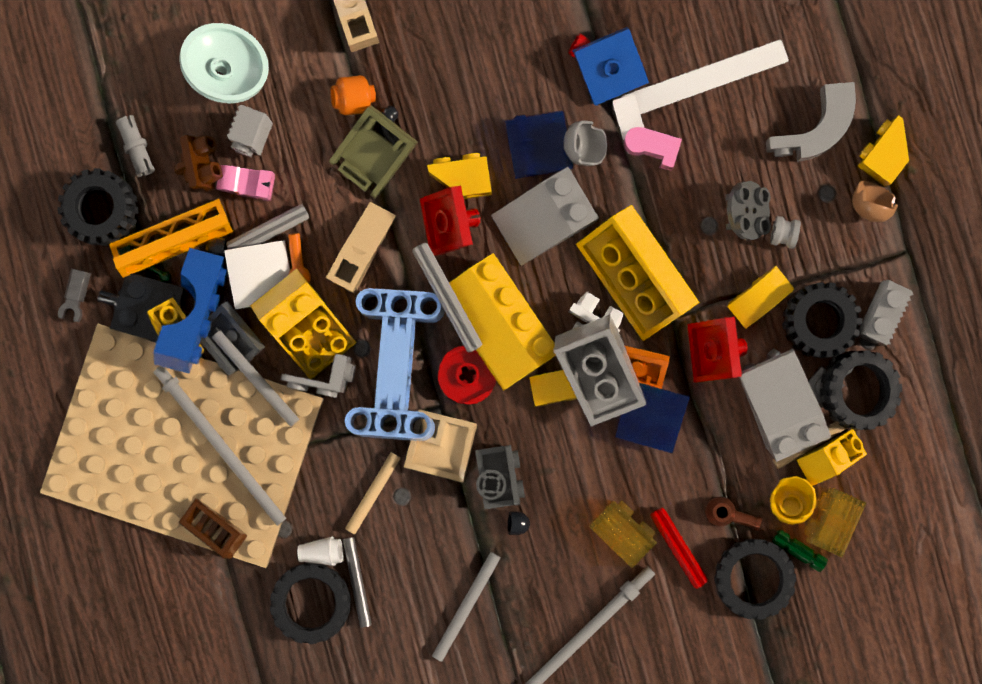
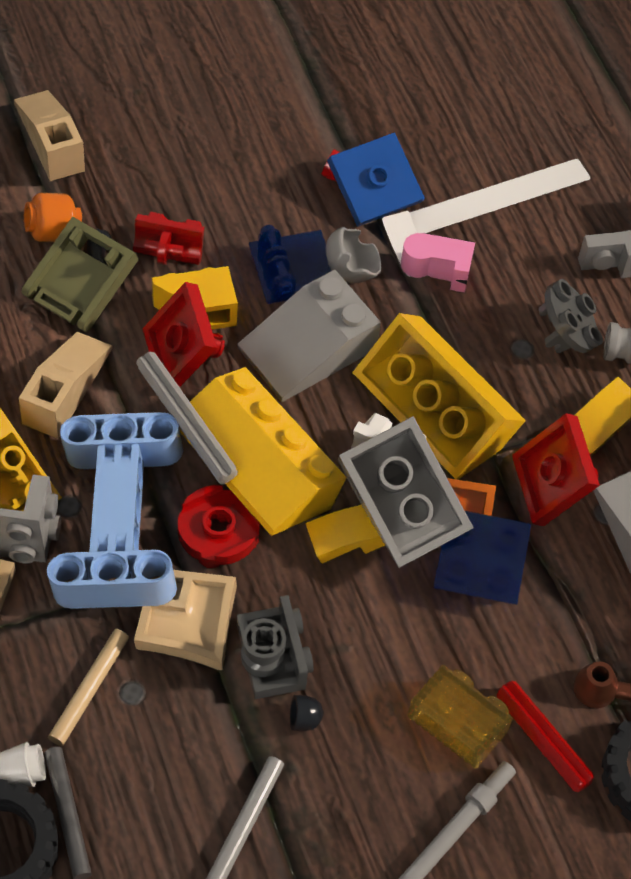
camera: 10 degrees left, 30 degrees down
(440, 120) = (168, 238): none -> red hips

